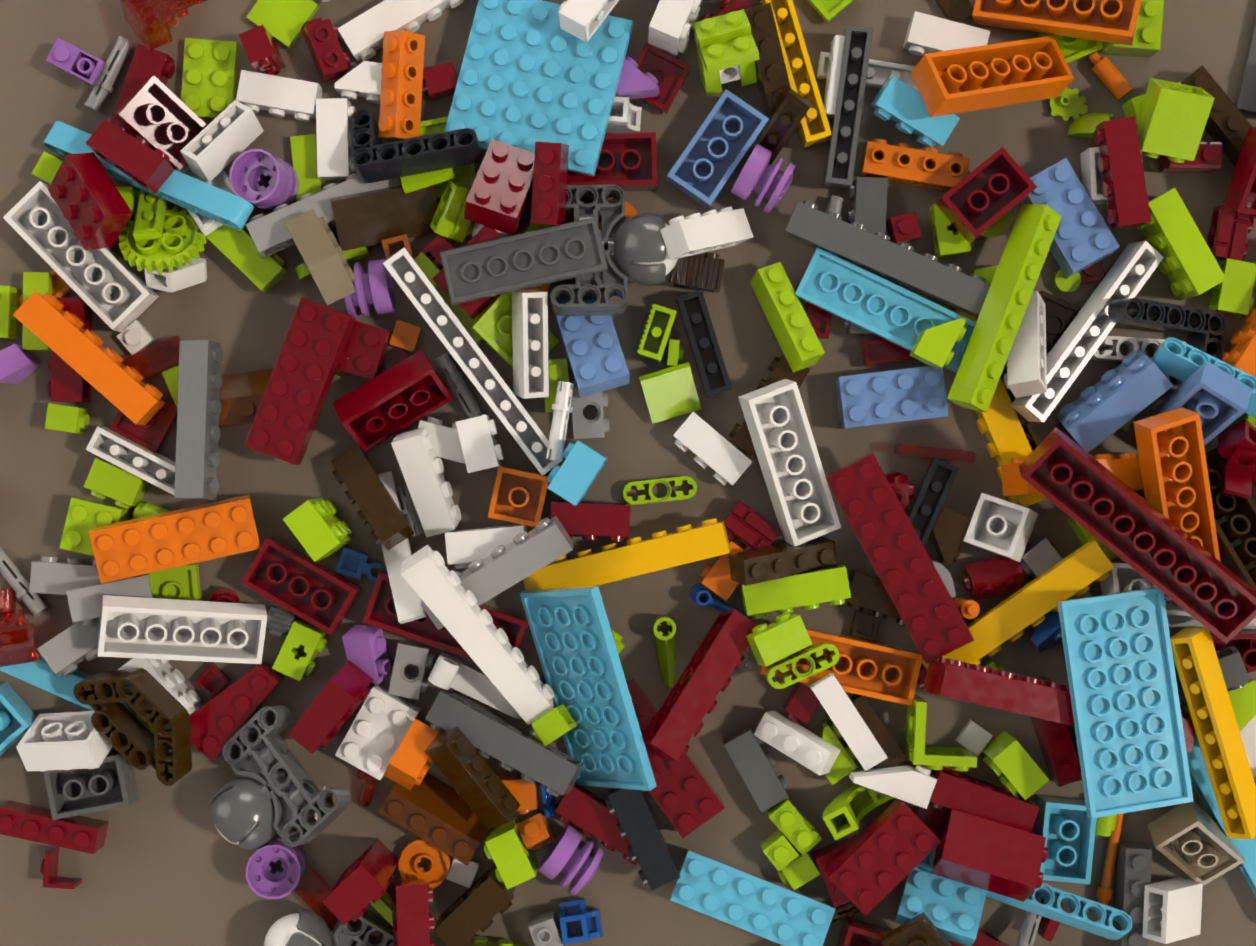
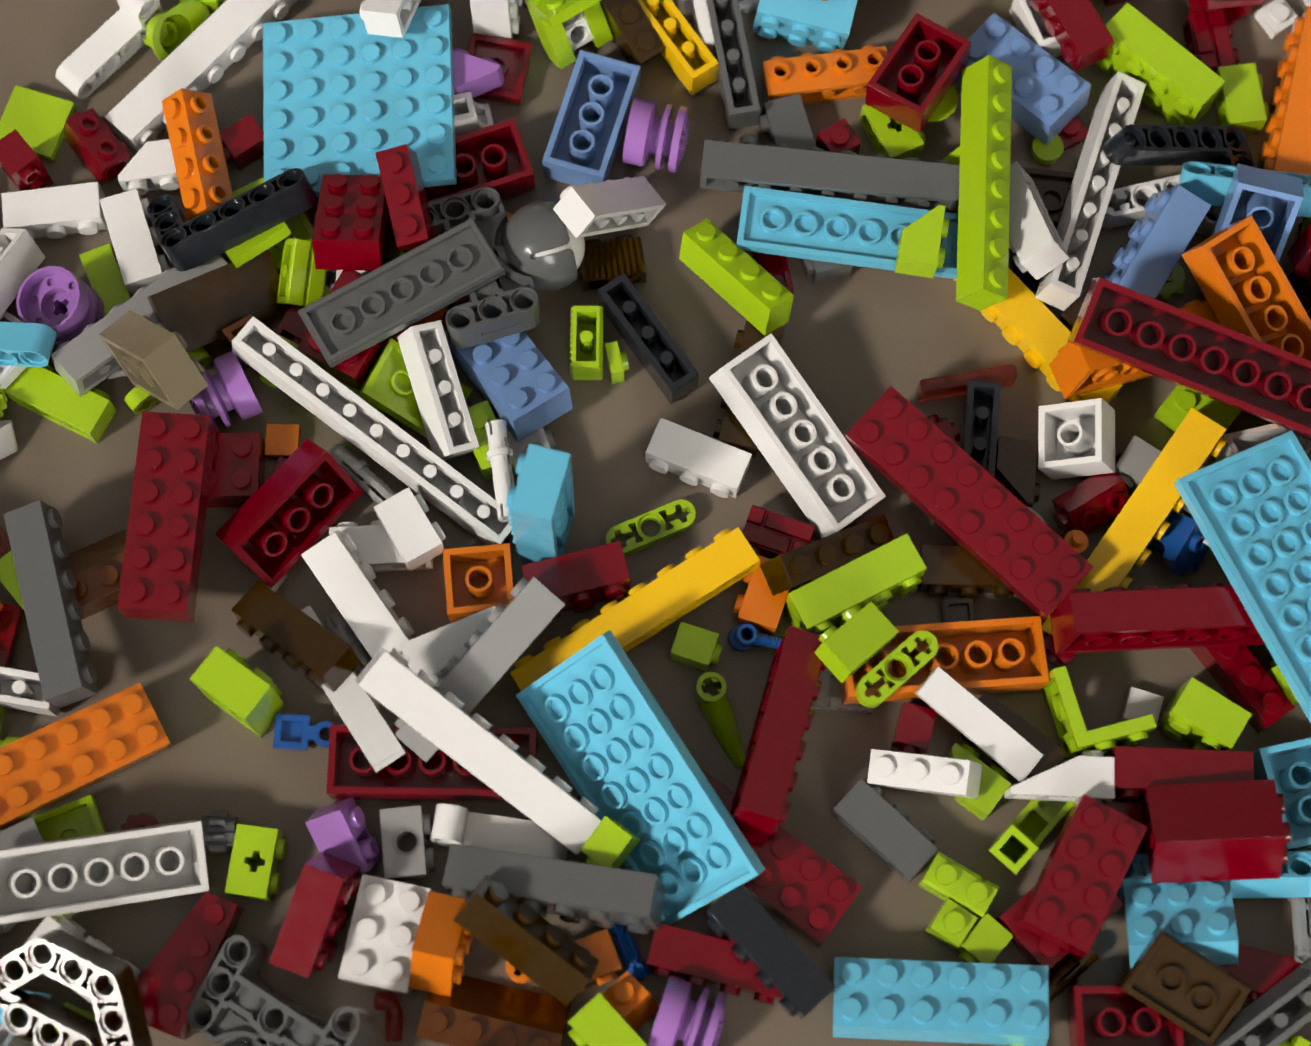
camera: 20 degrees left, 15 degrees down
(212, 680) = (148, 940): dark red tile -> none
(301, 585) = (235, 776): dark red brick -> none
(663, 592) = (695, 647): none -> lime brick
(670, 392) = (625, 406): lime tile -> none
(783, 123) = (659, 66): dark brown tile -> none
(883, 352) = (867, 287): dark red plate -> none
(891, 396) = (891, 333): medium blue brick -> none

